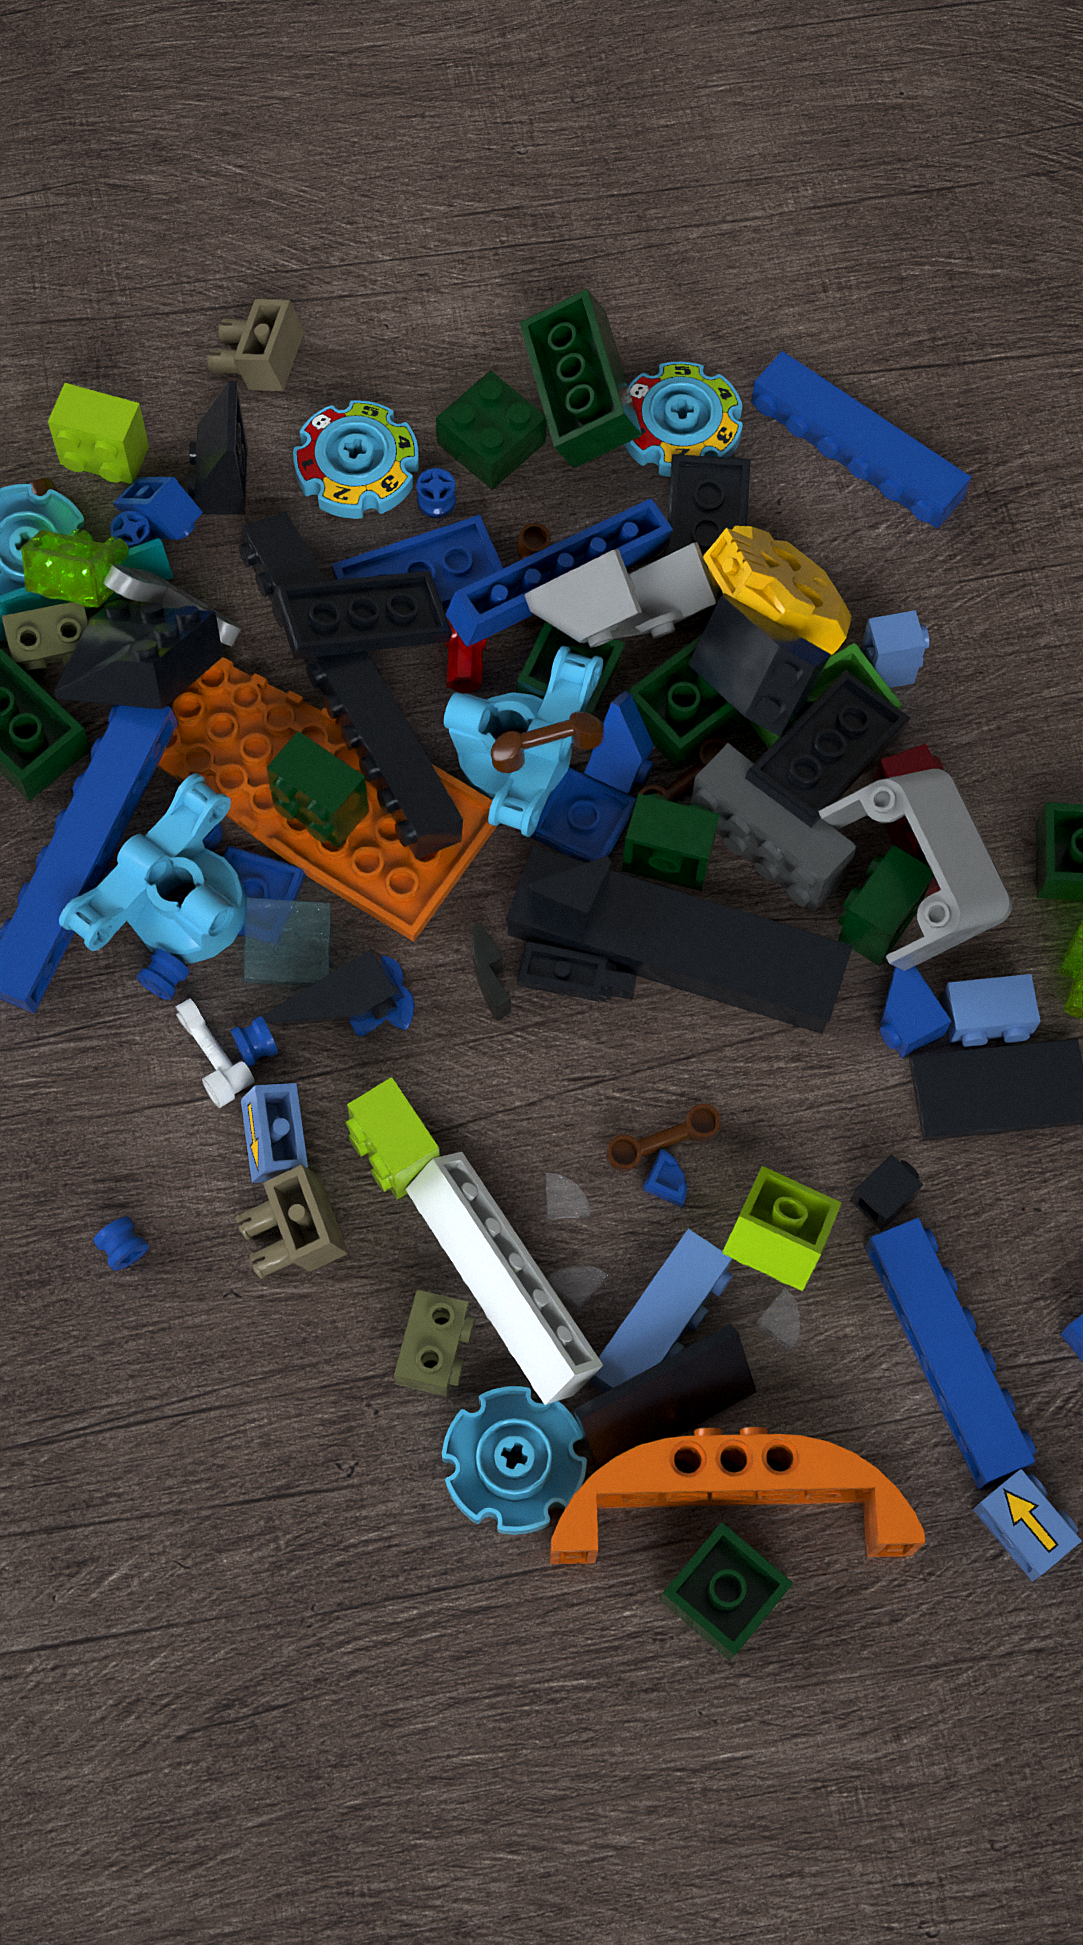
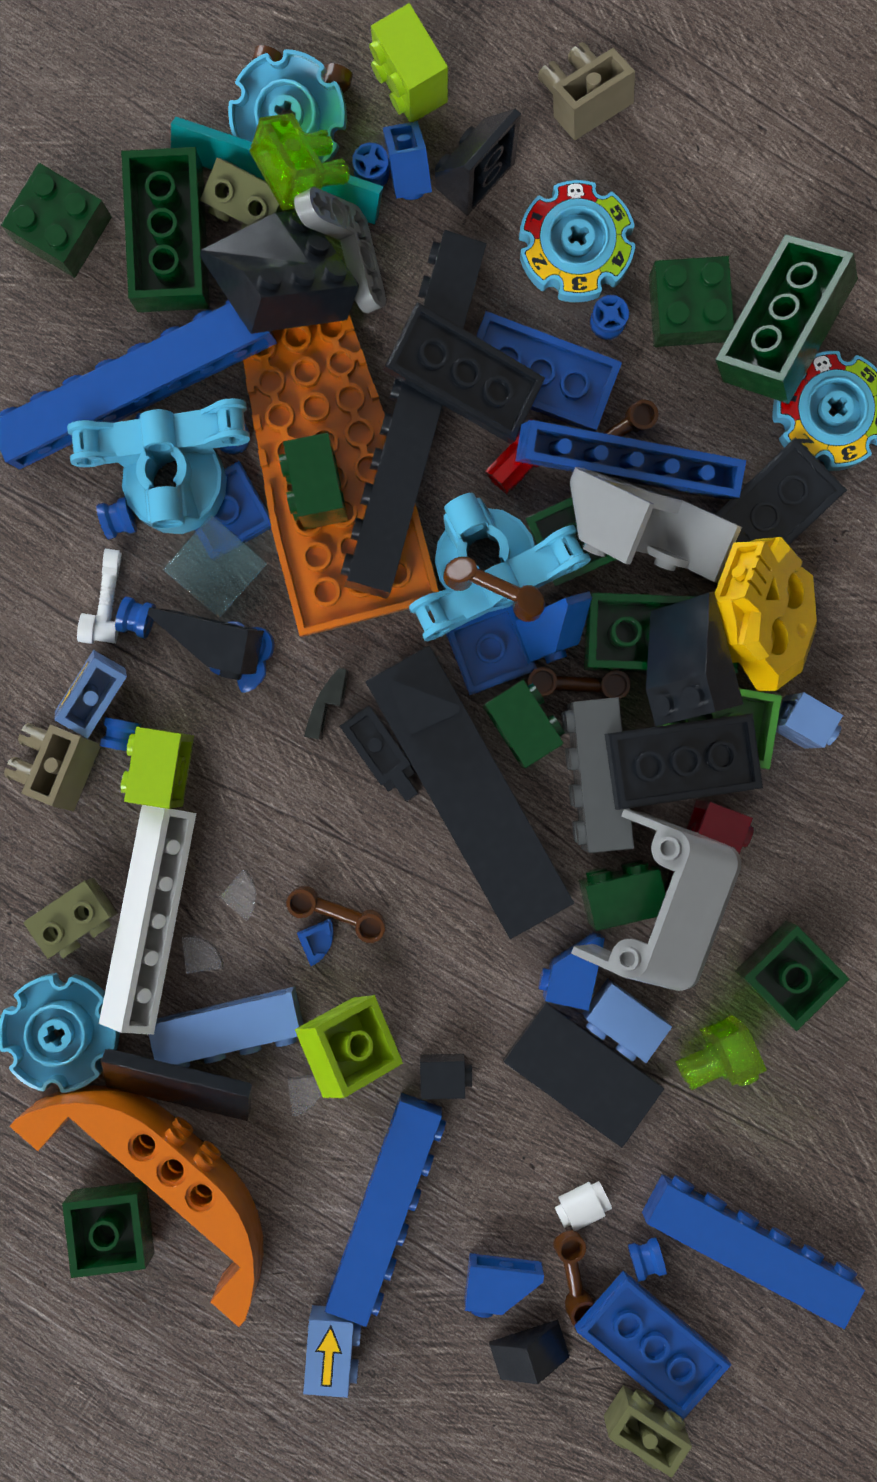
camera: 50 degrees right, 20 degrees up
(331, 1150) = (117, 733): none -> blue wheel

